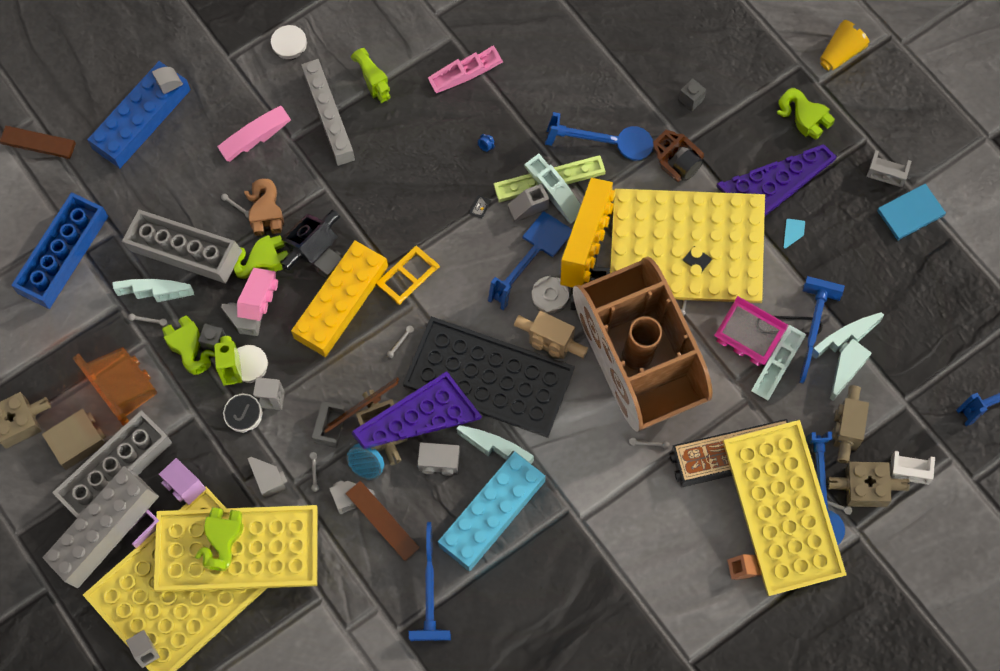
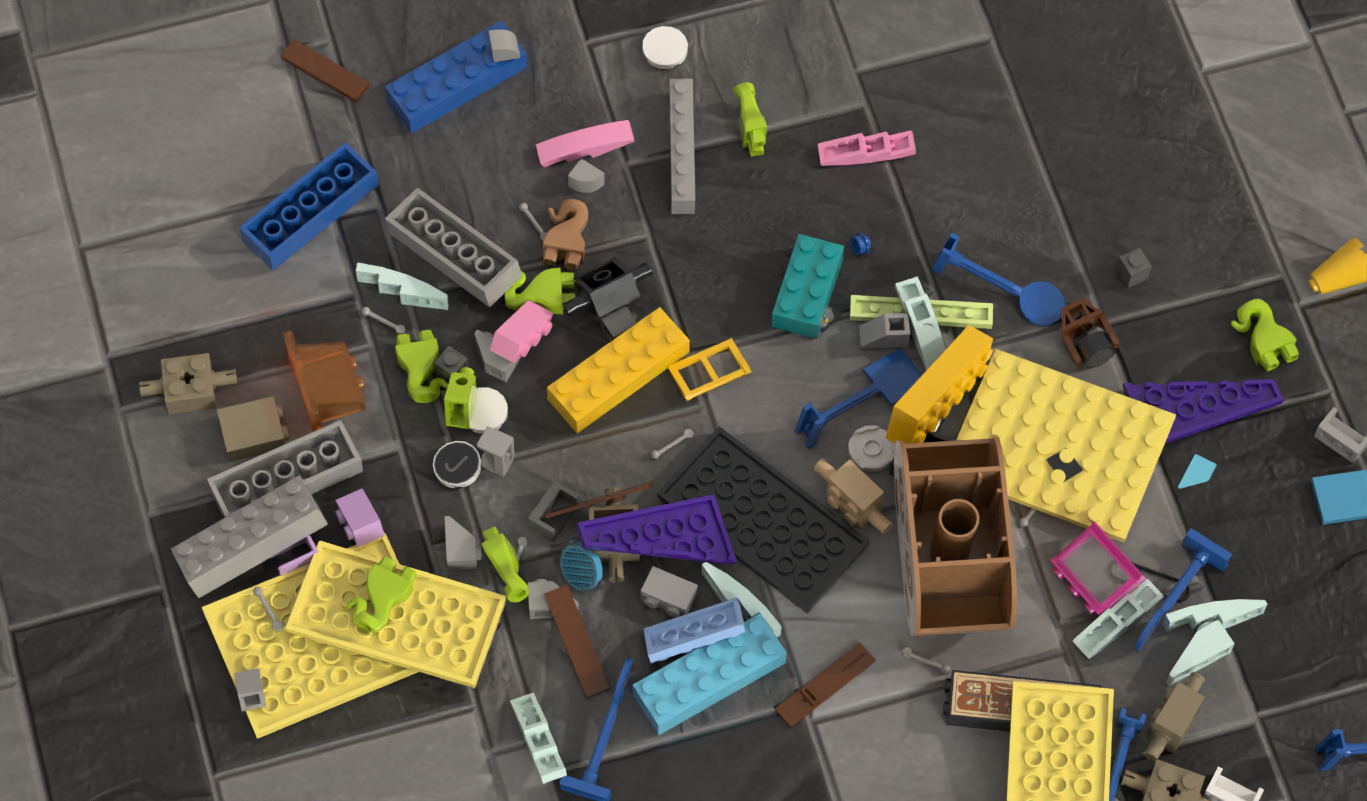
camera: 15 degrees right, 5 degrees down
(147, 589) = (277, 625): none -> light grey hinge
(264, 159) = (585, 177): none -> light grey brick
(308, 479) = (506, 564): none -> lime hips
(379, 608) = (538, 738): none -> light aqua slope
(459, 187) = (807, 286): none -> teal brick
(469, 482) = (694, 630): none -> light blue plate
(580, 488) = (825, 685): none -> reddish brown piece

